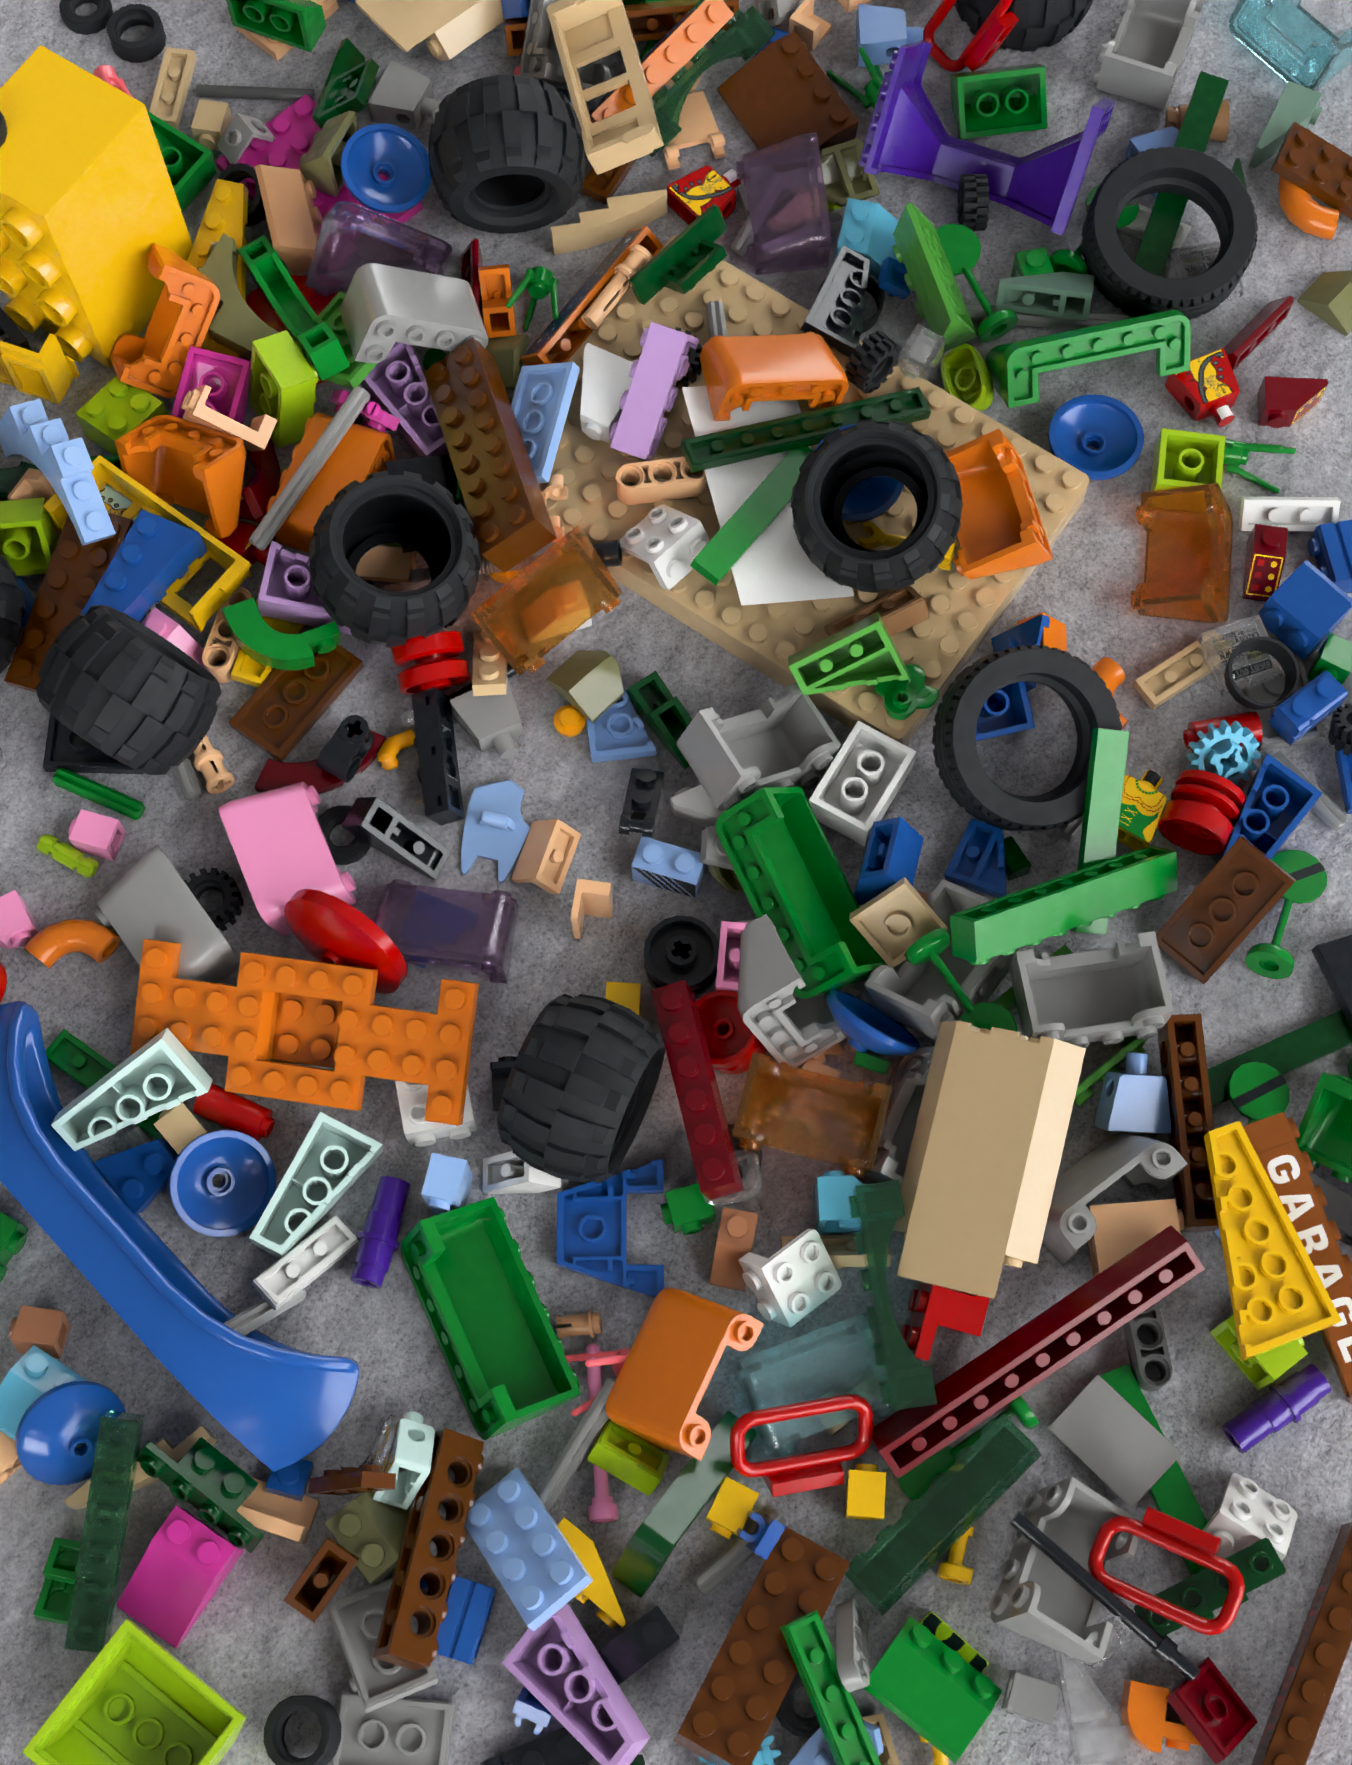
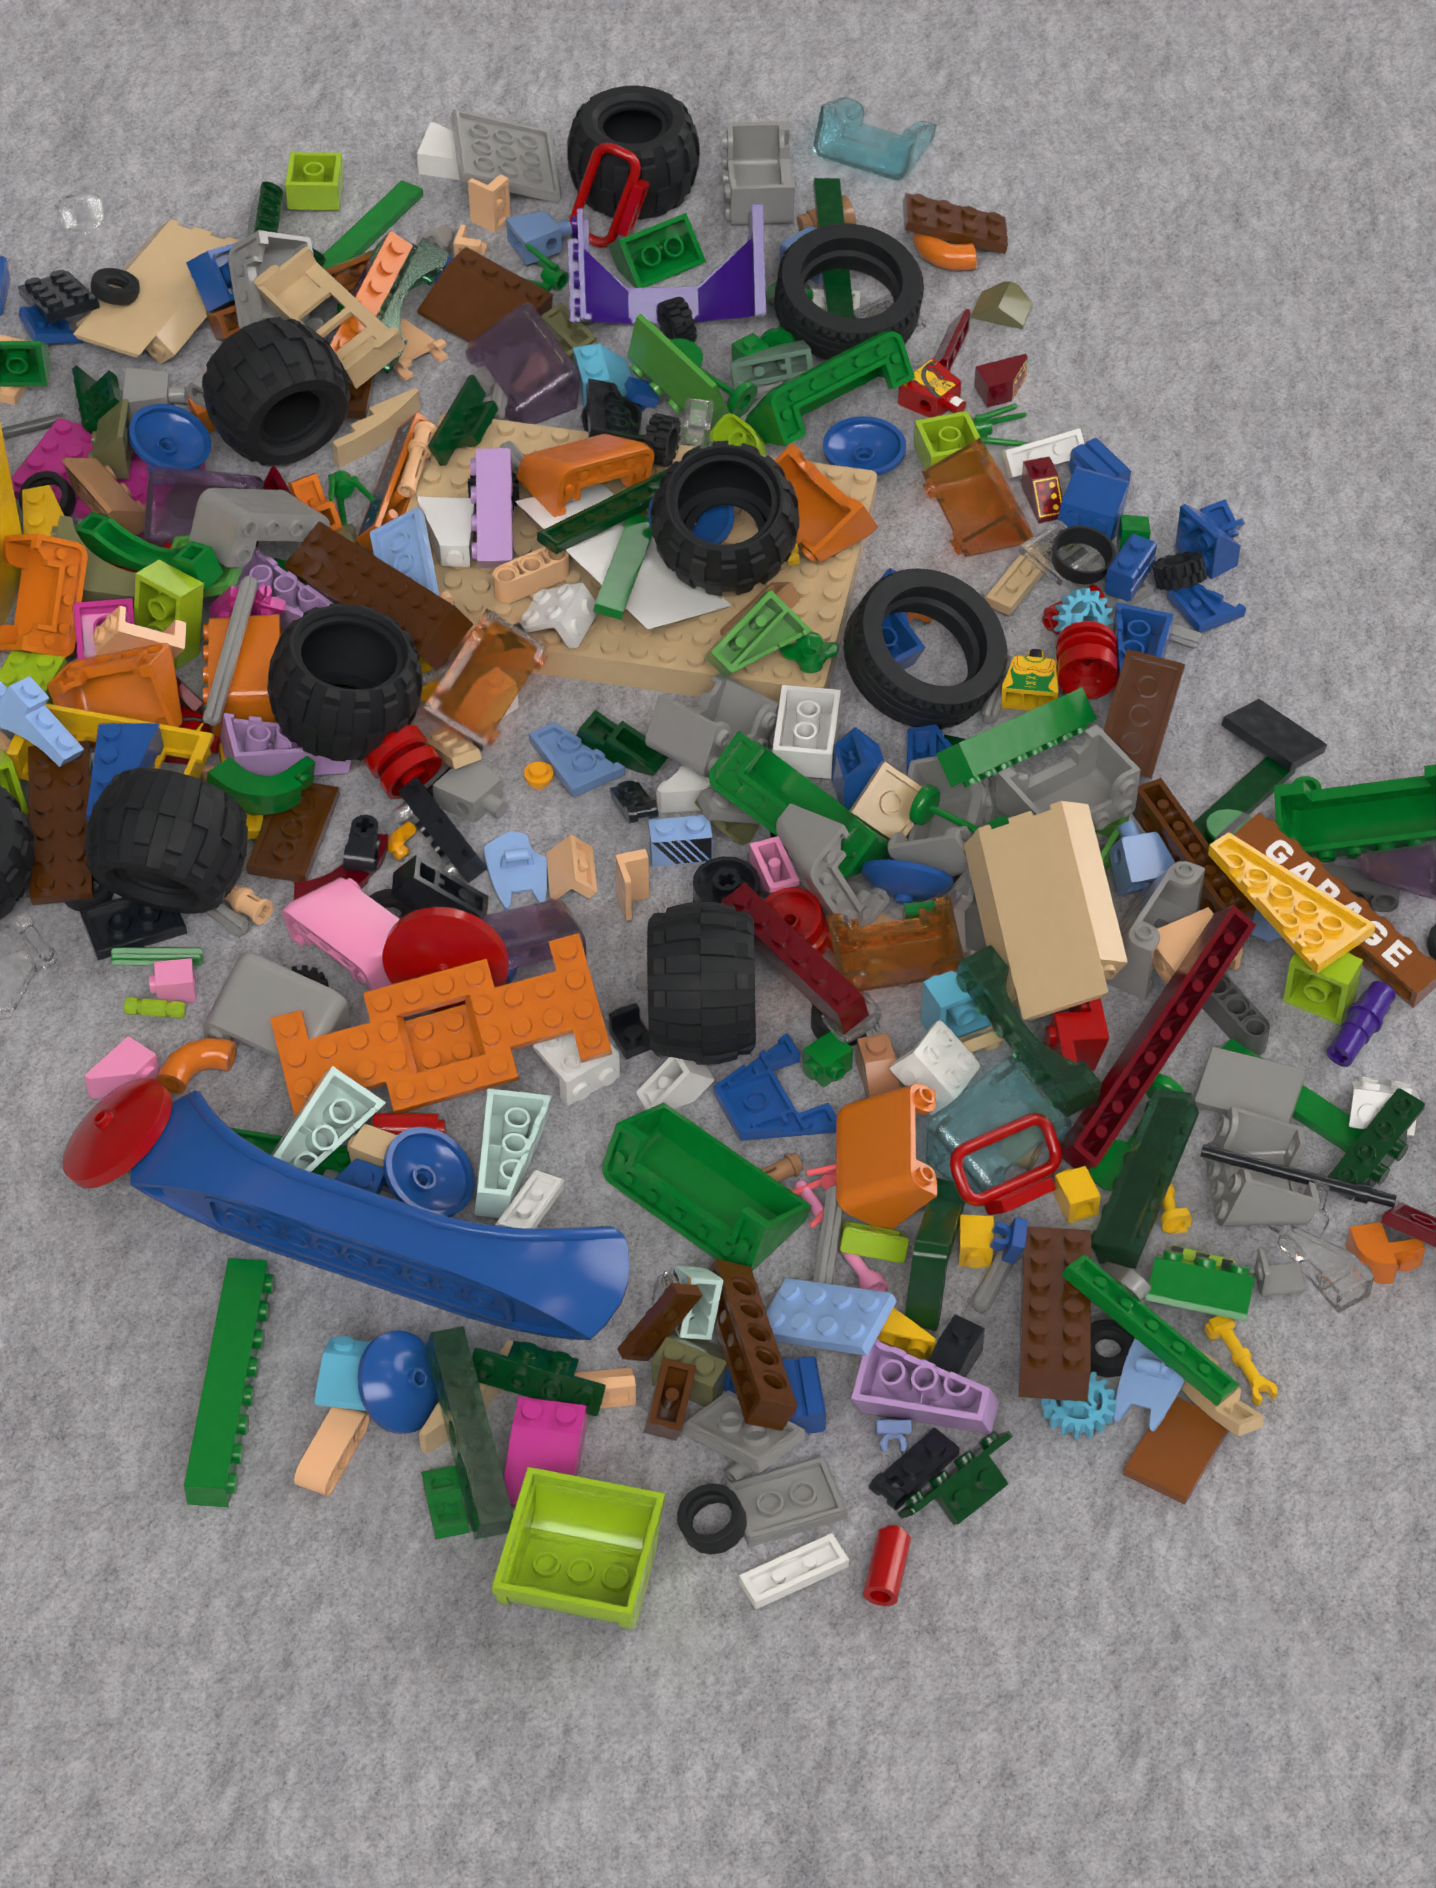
camera: 25 degrees left, 20 degrees down
(42, 1328) = (320, 1328): nougat brick -> none
(240, 134) = (22, 458): light grey bracket -> none
(291, 1480) = (598, 1358): blue plate -> none
(380, 1232) = (581, 1167): dark purple piece -> none
(446, 1183) = (619, 1098): light blue brick -> none
(589, 682) = (542, 737): olive slope -> none
(700, 190) = (443, 384): torso -> none
(1102, 805) = (1010, 676): tile -> none
(1179, 1539) = (1338, 1112): red bar -> none
(1295, 105) = (895, 186): sand green slope -> none
(1311, 880) = (1194, 739): green piece -> none

